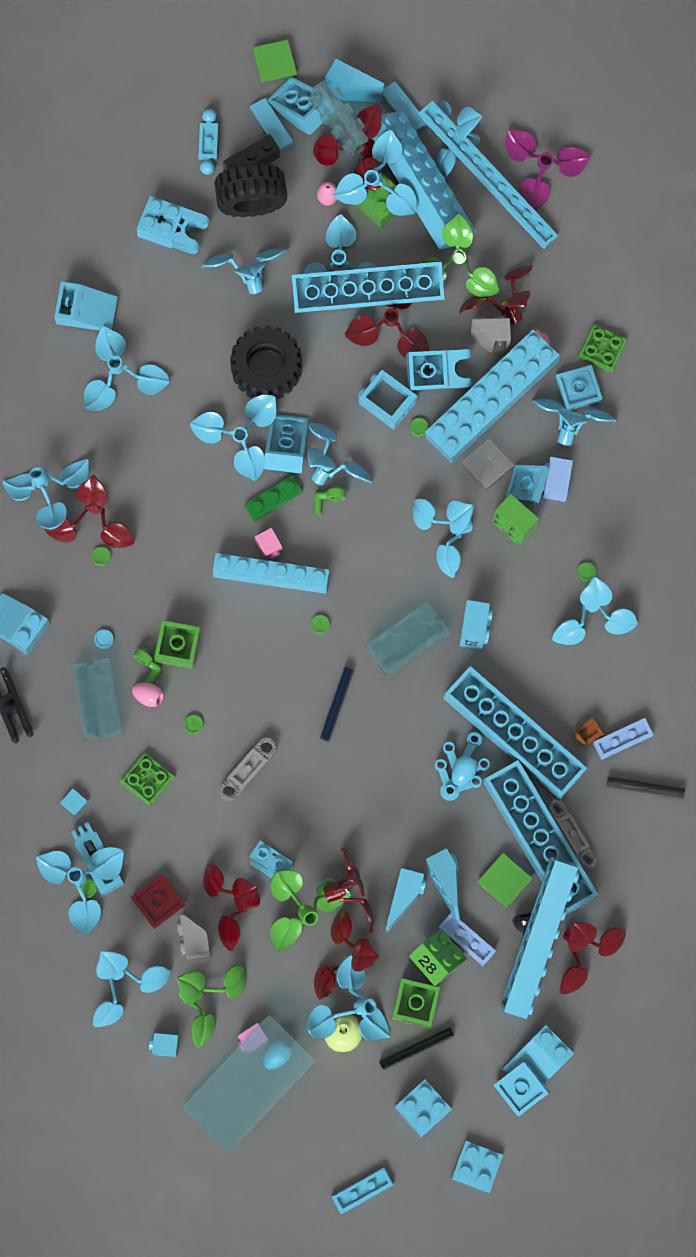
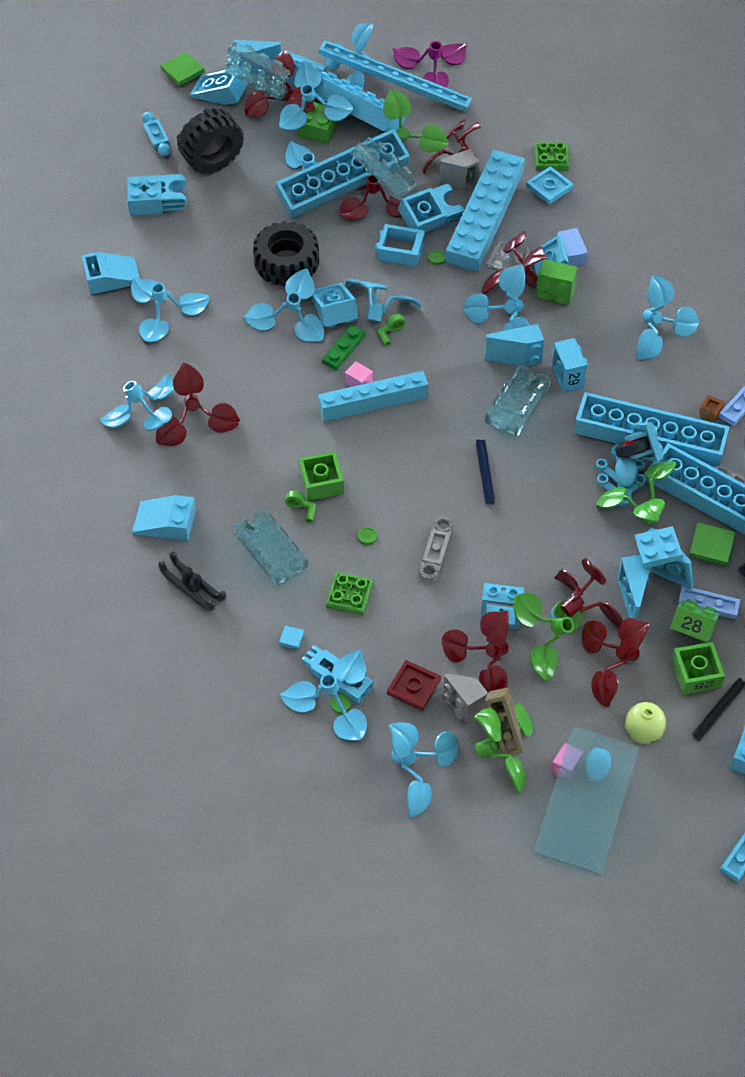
camera: 20 degrees left, 20 degrees down
(101, 556) = (216, 442): bright green piece -> none
(103, 639) = (251, 502): medium azure piece -> none
(147, 694) = (314, 524): bright pink animal -> none
(164, 1045) = (487, 802): medium azure brick -> none
(215, 970) = (503, 704): none -> dark tan slope
(250, 271) = (243, 205): medium azure plant -> none
(270, 123) = (193, 104): medium azure tile -> none
(320, 624) = (436, 420): bright green piece -> none
(325, 193) = (272, 131): bright pink animal -> none
(373, 1024) = (656, 680): medium azure plant -> none
(406, 310) = (384, 168): none -> clear light blue piece
(437, 580) = (515, 346): none -> medium azure slope
(437, 875) = (658, 547): none -> medium azure plate
(455, 830) = (649, 510): none -> bright green plant
(485, 753) = (641, 443): none -> medium azure plate
(494, 494) = (532, 258): none -> dark red plant
(572, 419) = (560, 213): medium azure plant -> none
(586, 571) = (634, 303): bright green piece -> none

